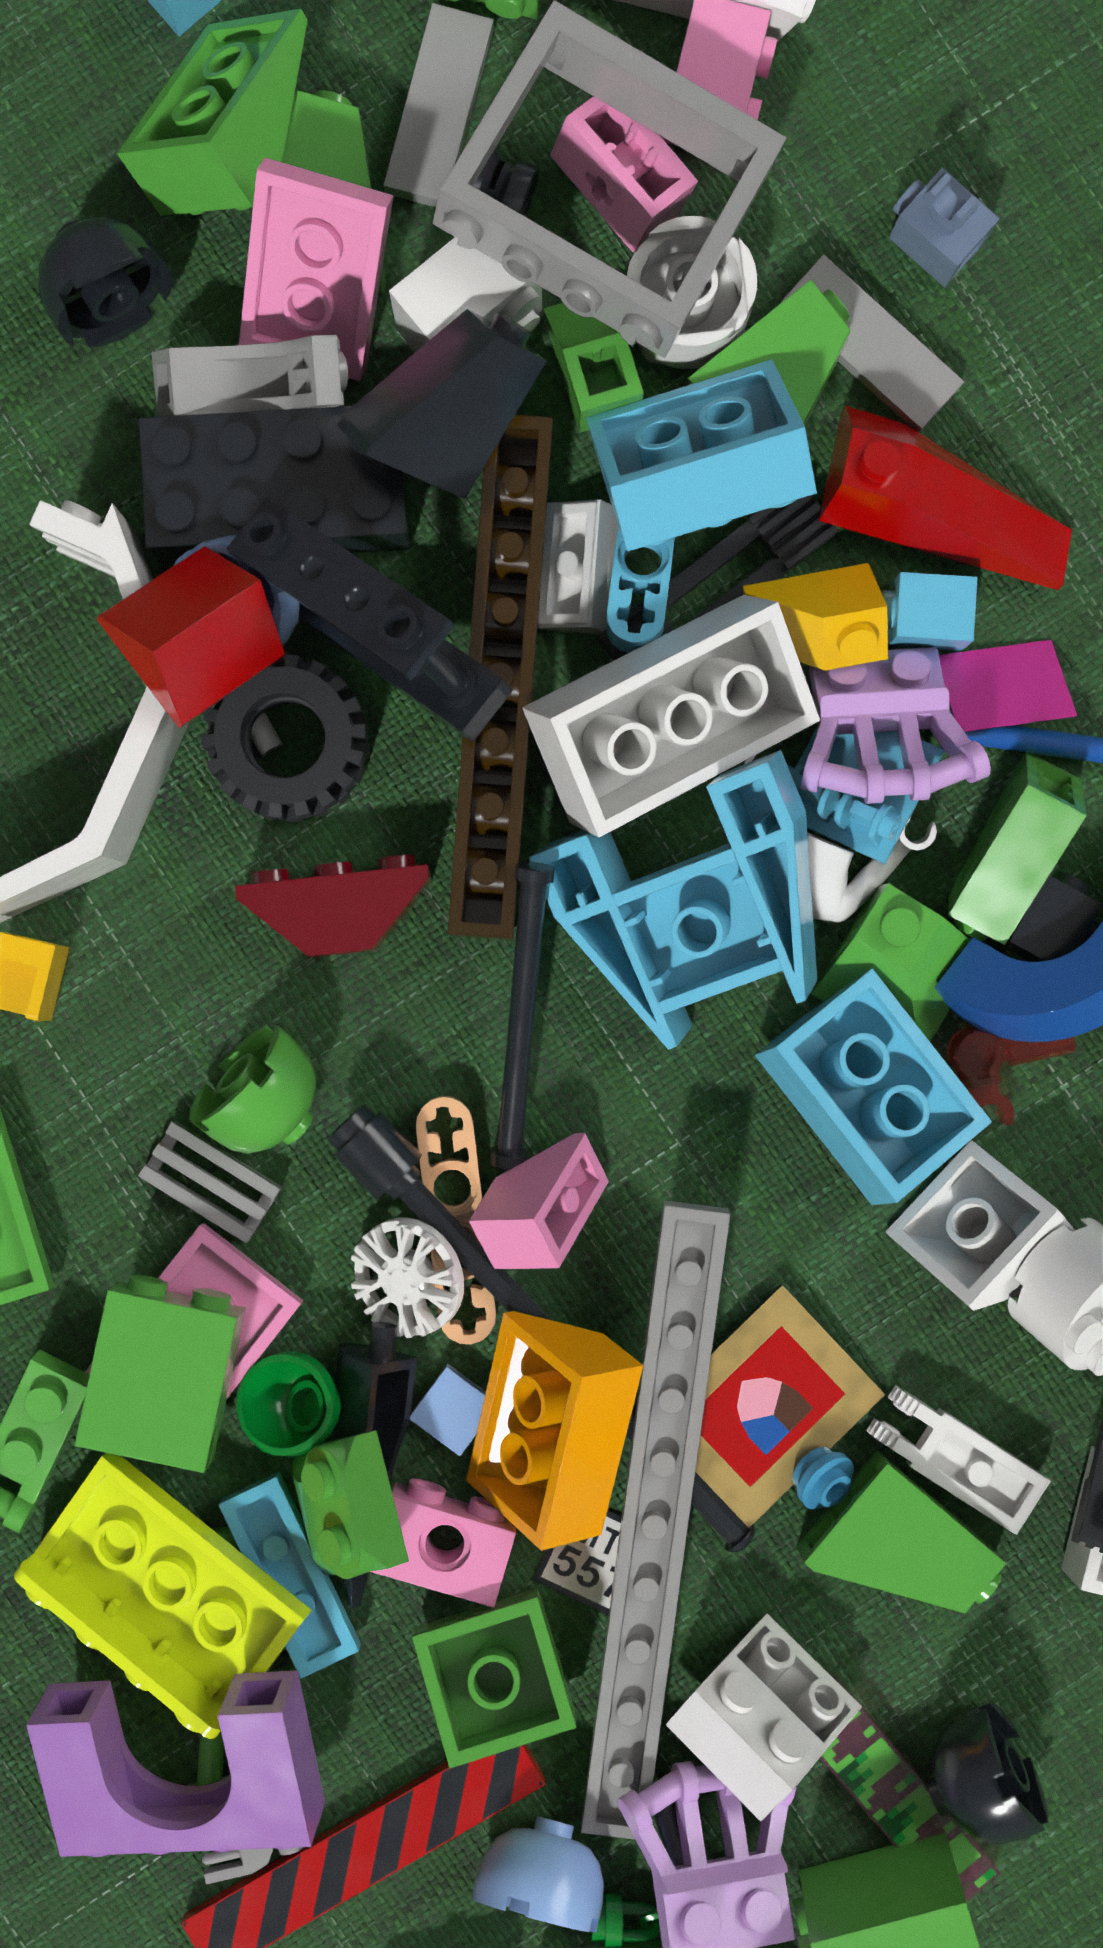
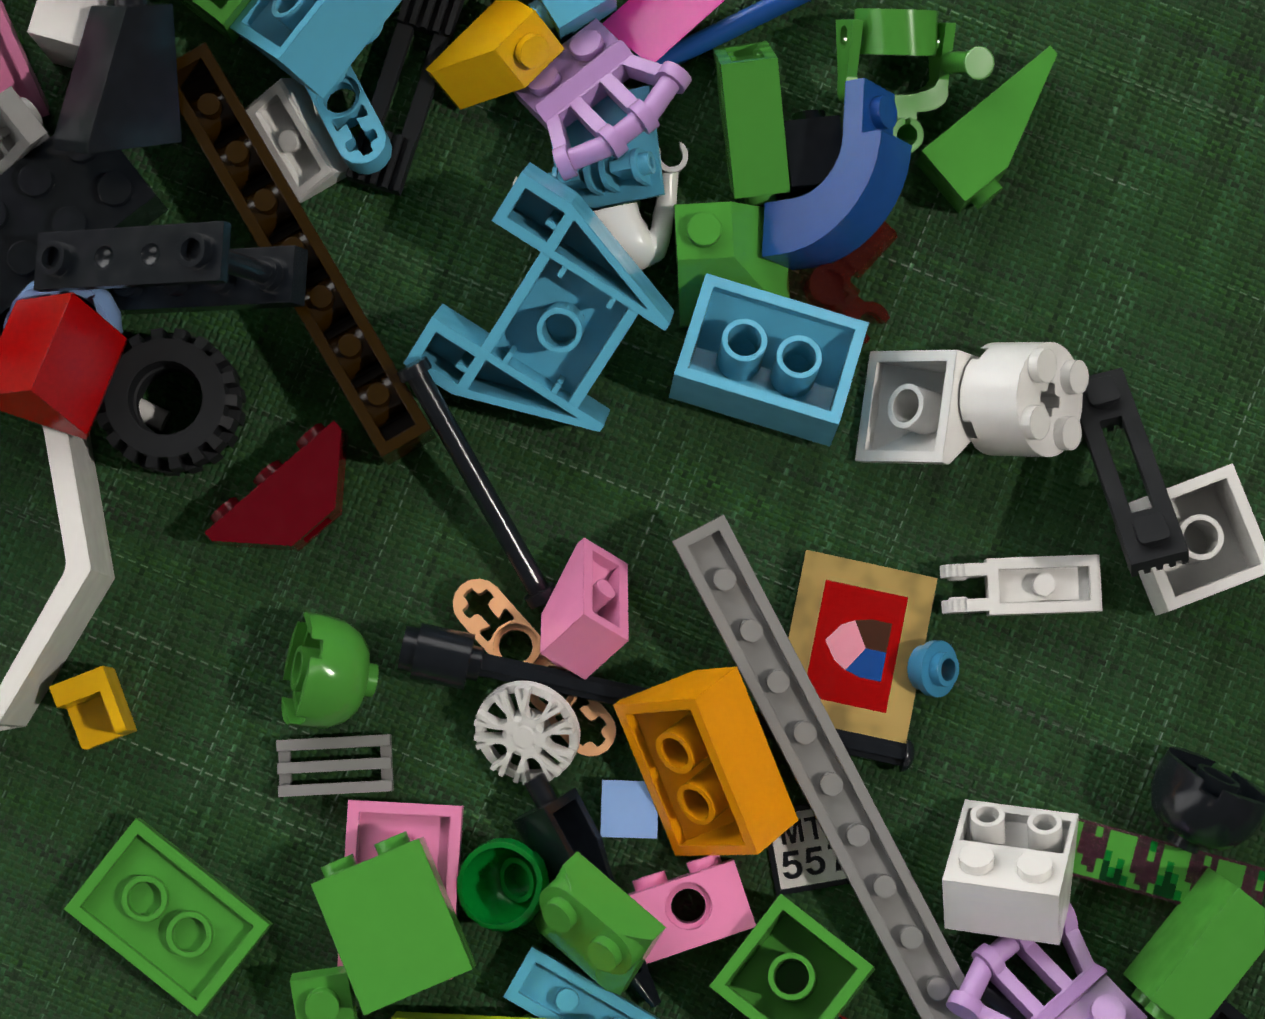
camera: 30 degrees left, 5 degrees down
(672, 714) = (435, 191): white brick -> none
(901, 1542) = (1023, 671): bright green slope -> none

